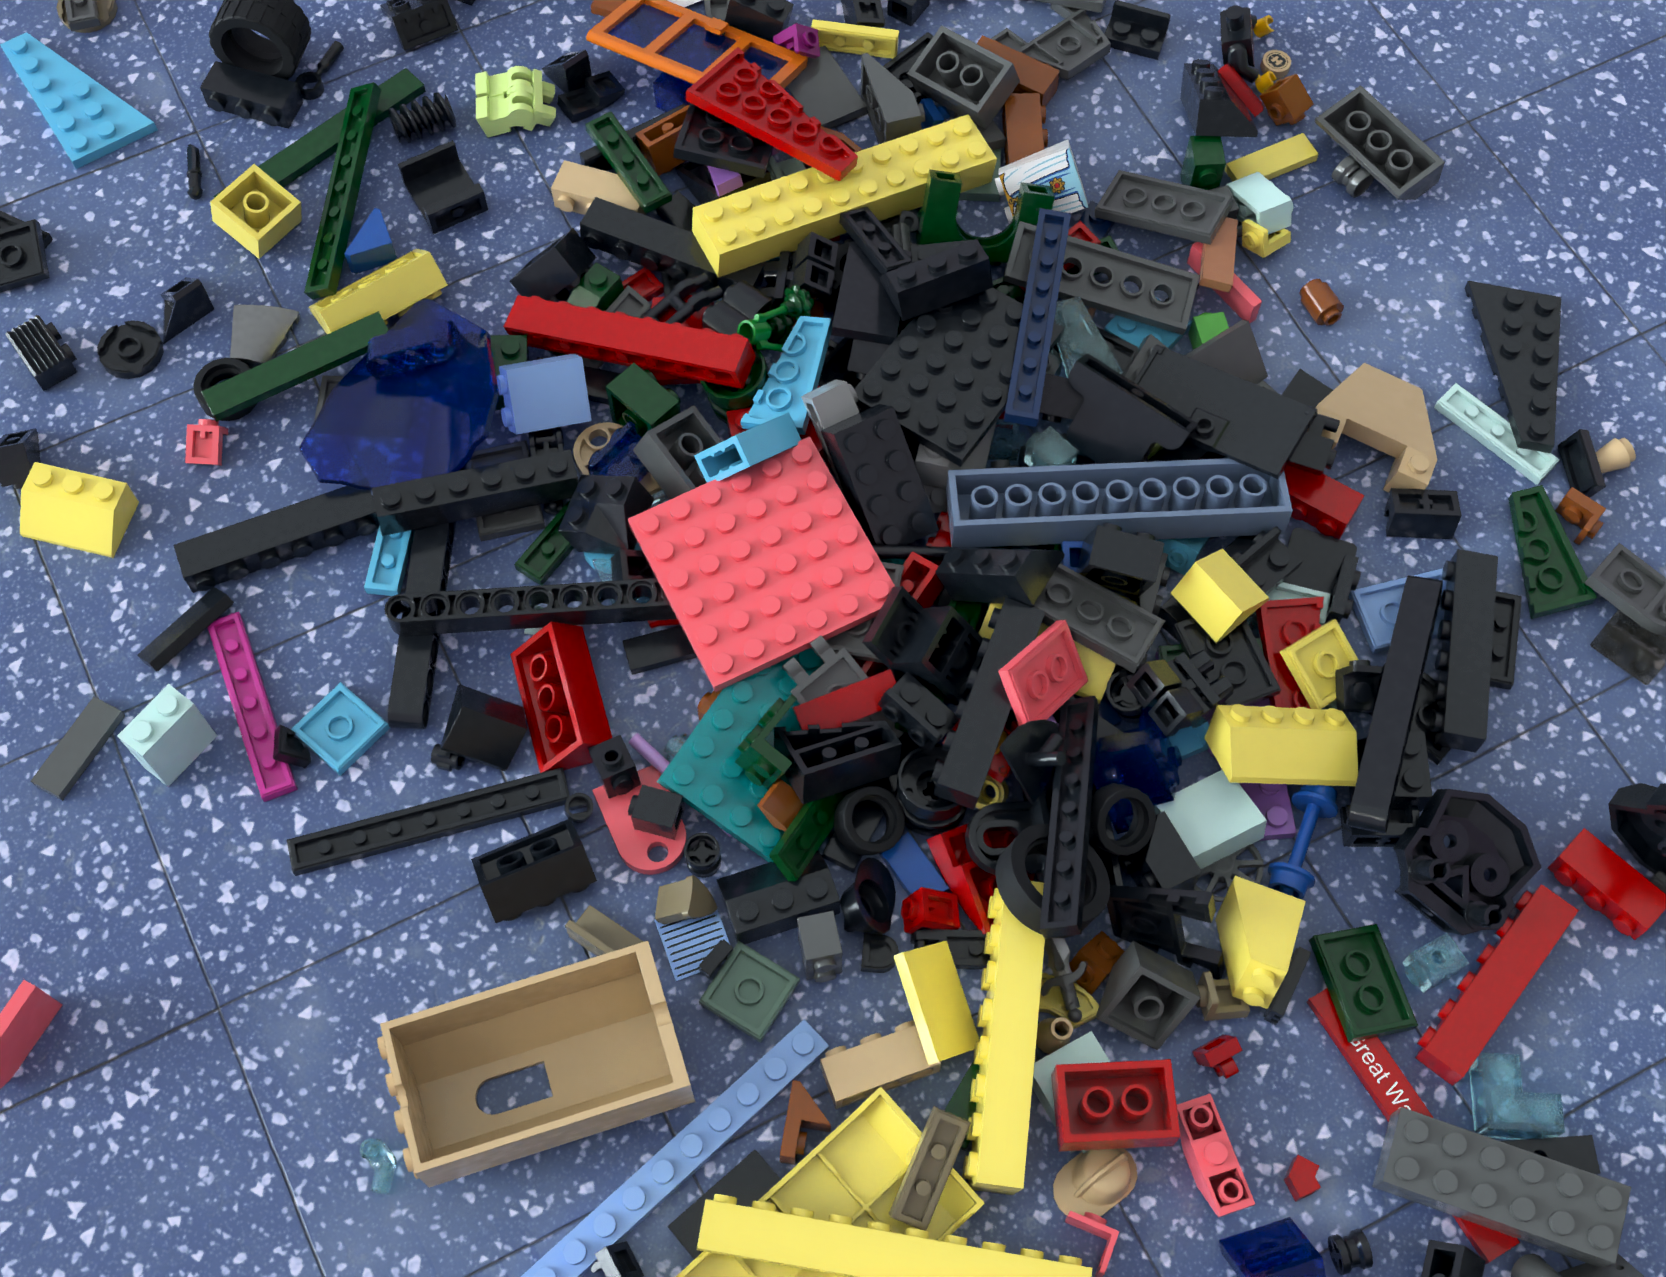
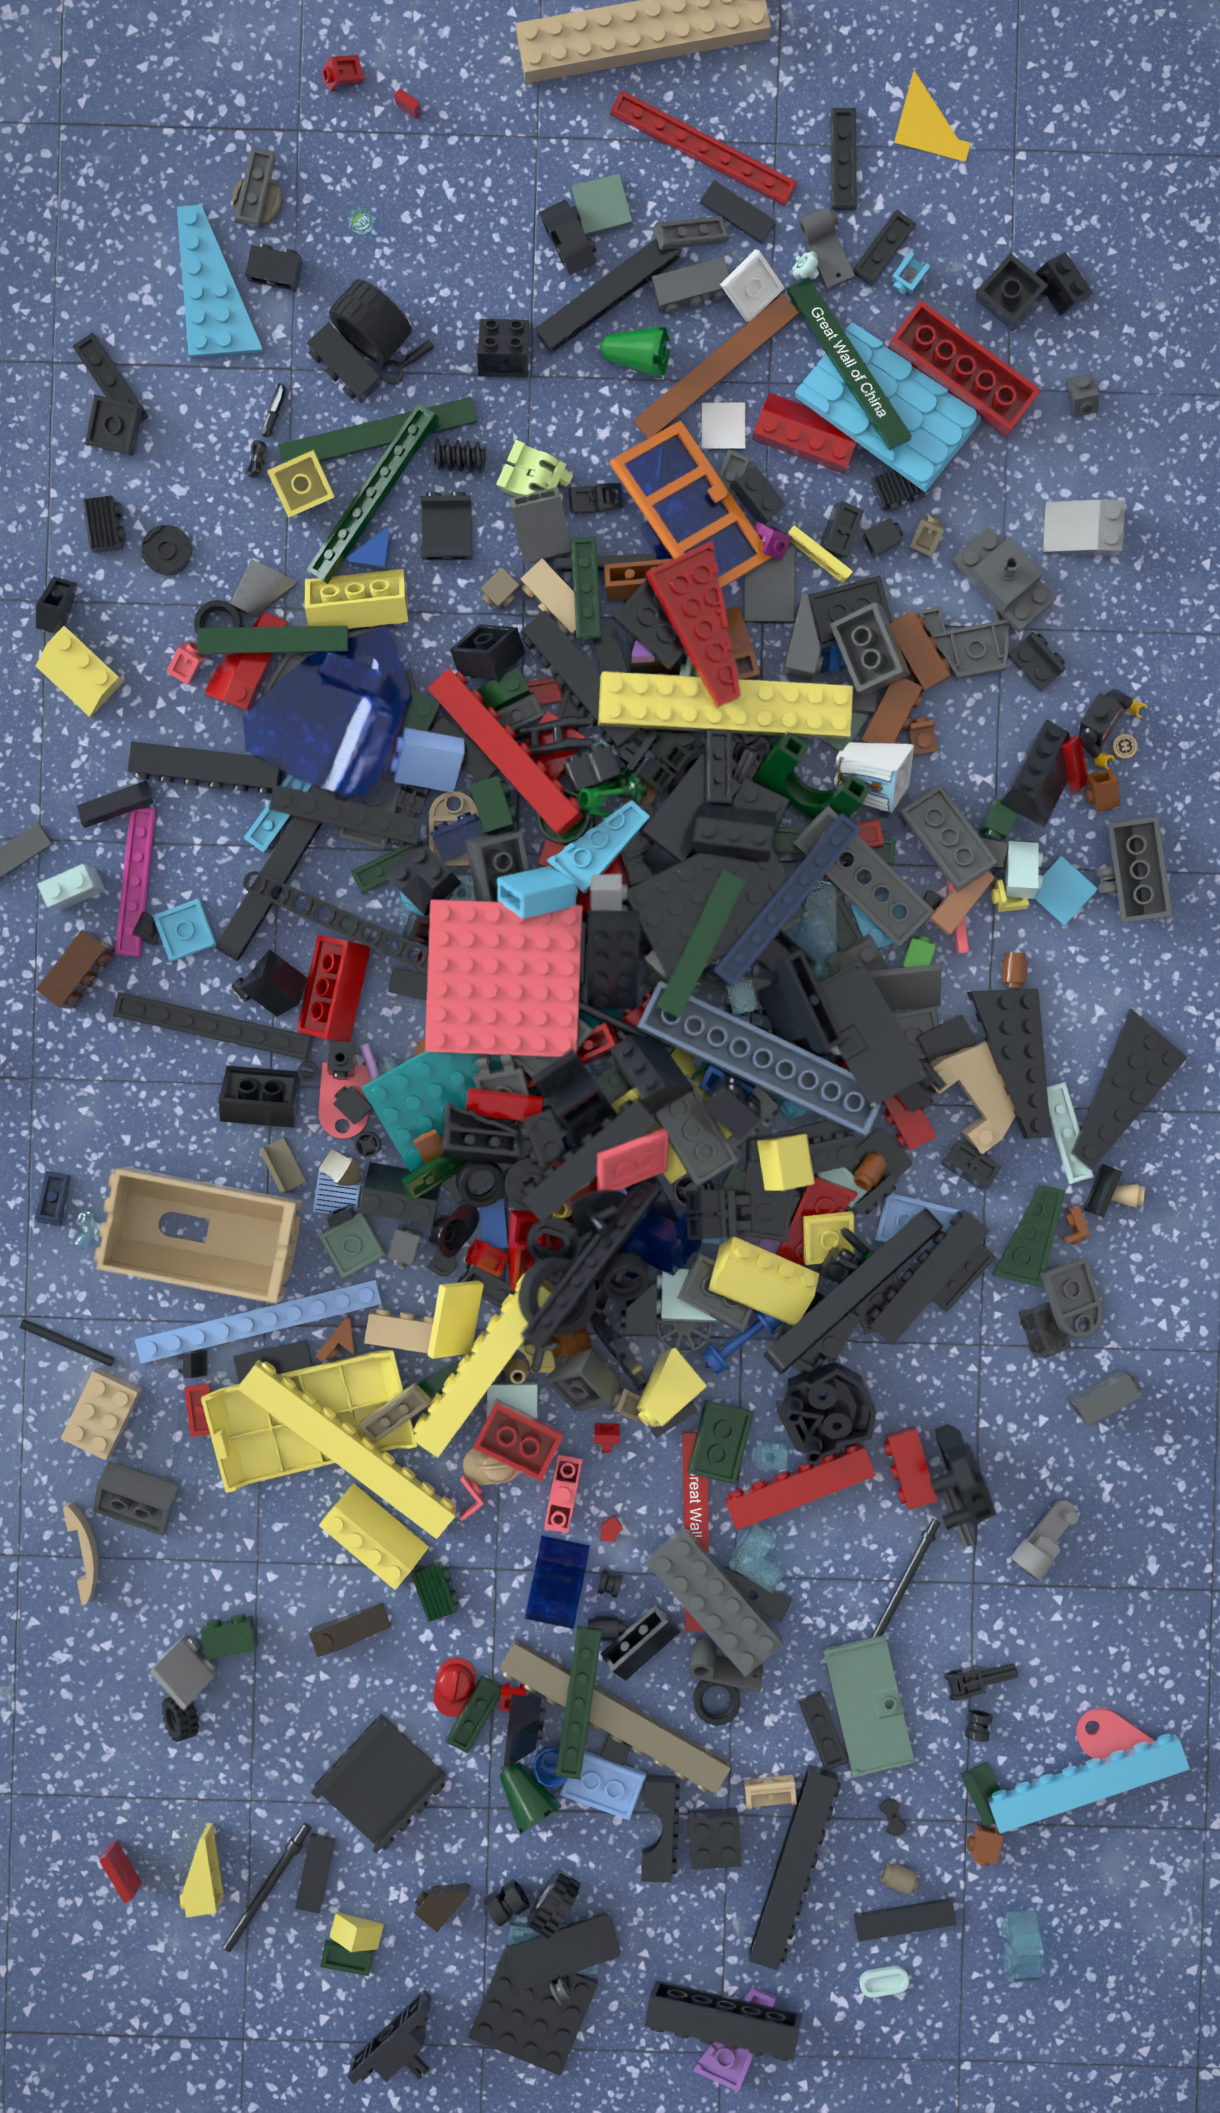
camera: 30 degrees right, 25 degrees up
(132, 49) = (274, 267): none -> black brick
(184, 306) = (217, 531): black slope -> none
(191, 212) = (254, 468): none -> black piece
(216, 831) = (76, 970): none -> reddish brown brick
(278, 431) = (241, 675): none -> red wedge
(314, 1150) = (52, 1198): none -> dark blue slope
(534, 214) = (500, 590): none -> dark tan brick
(545, 131) = (541, 525): none -> dark grey brick
(569, 70) = (589, 465): black slope -> none
(758, 757) = (433, 1102): dark green bracket -> none
(972, 403) = (701, 943): none -> dark green tile
(1064, 131) = (922, 736): none -> dark orange bracket
(1243, 801) = (697, 1294): none -> dark grey tile
(1274, 159) = (1063, 832): light yellow tile -> none
(1316, 212) = (1063, 891): none -> medium azure tile
(1319, 568) = (870, 1171): none -> dark orange brick
(1359, 649) = (856, 1243): none -> black piece
(1386, 372) = (1016, 1045): none -> black wing

